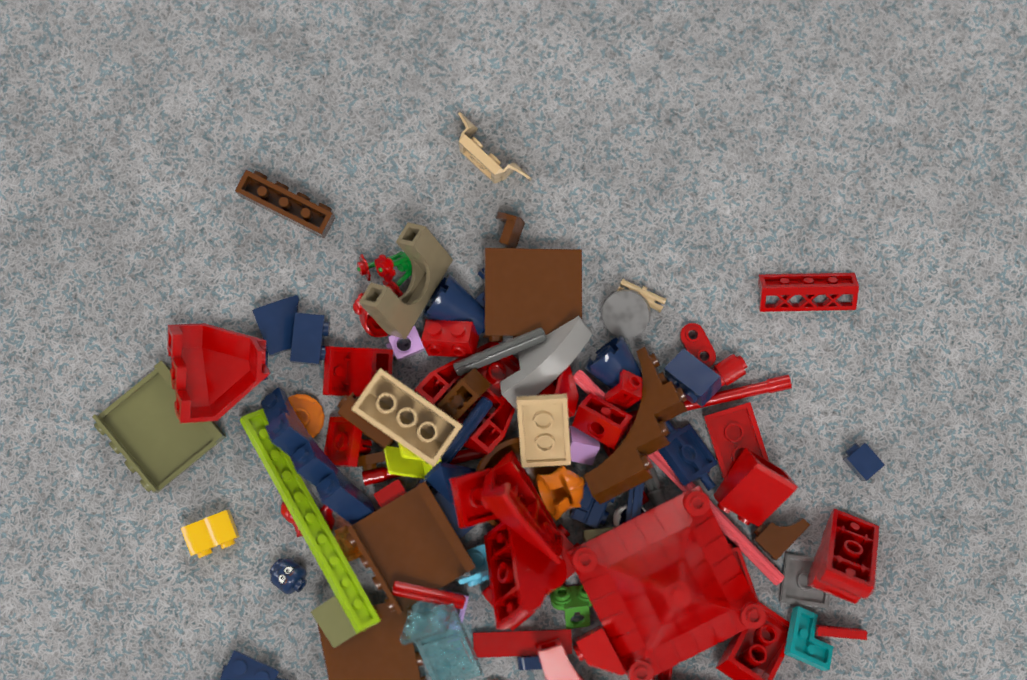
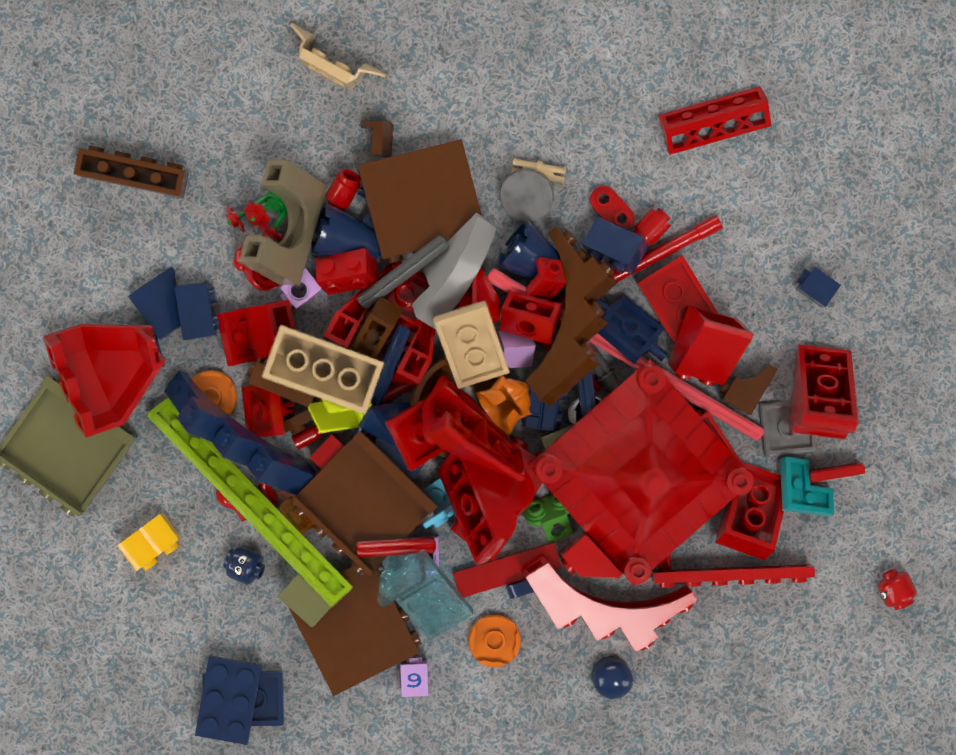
camera: 10 degrees left, 5 degrees up
(466, 266) = (343, 189): none -> red brick

